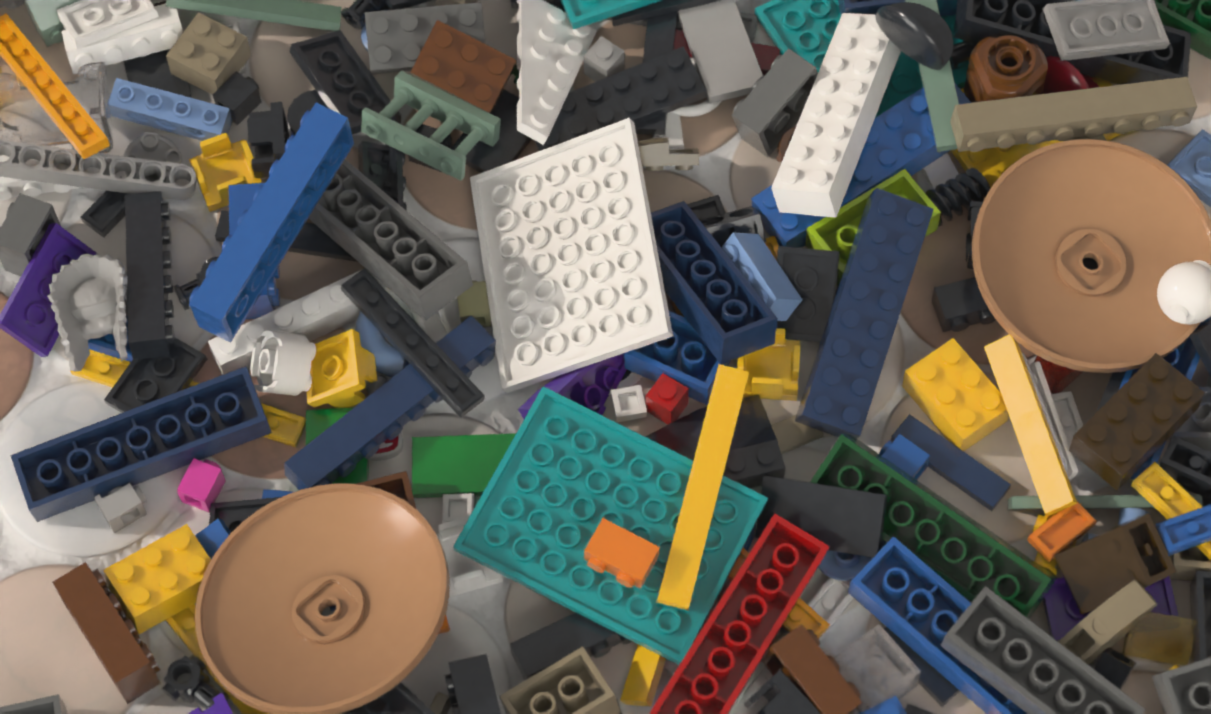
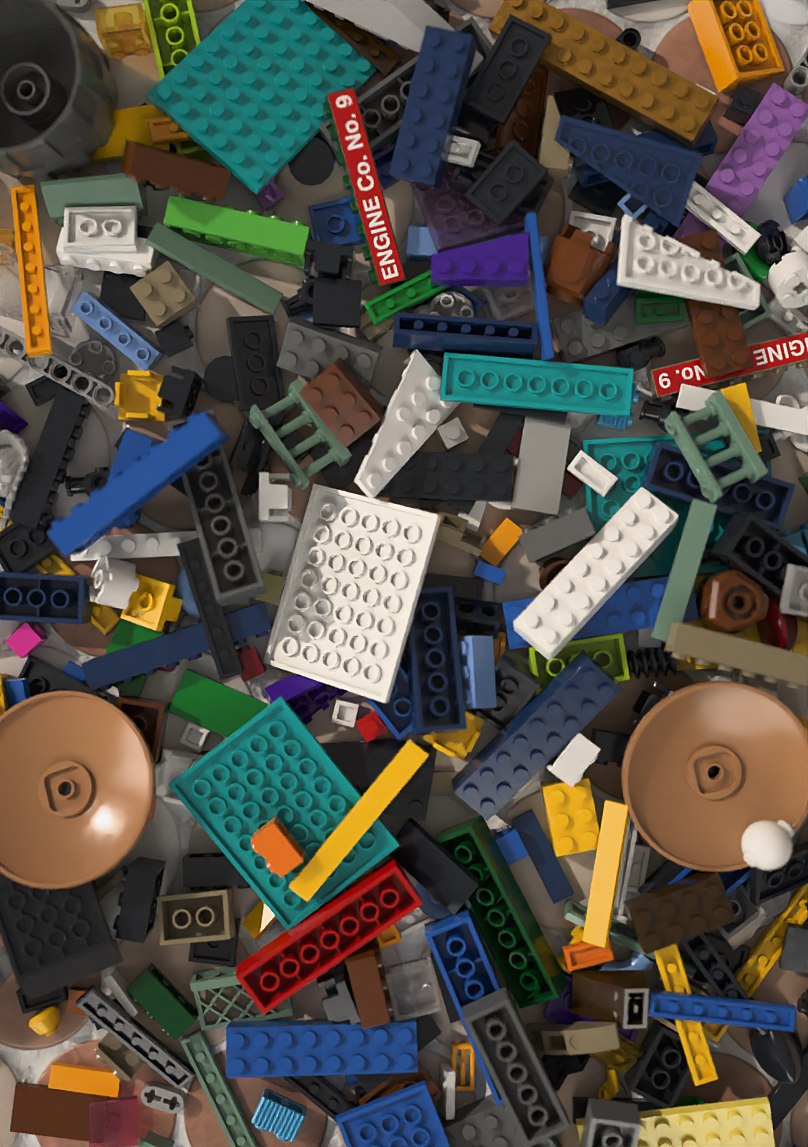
camera: 25 degrees right, 25 degrees up
(429, 197) = (273, 497): none -> white panel
(496, 396) = (251, 662): none -> dark red brick
(717, 151) = (500, 542): none -> light orange tile
(720, 181) = (488, 572): none -> blue piece
(782, 34) = (592, 473): none -> white tile
(917, 32) = (685, 542): black piece -> none
(918, 323) = (573, 759): none -> white brick

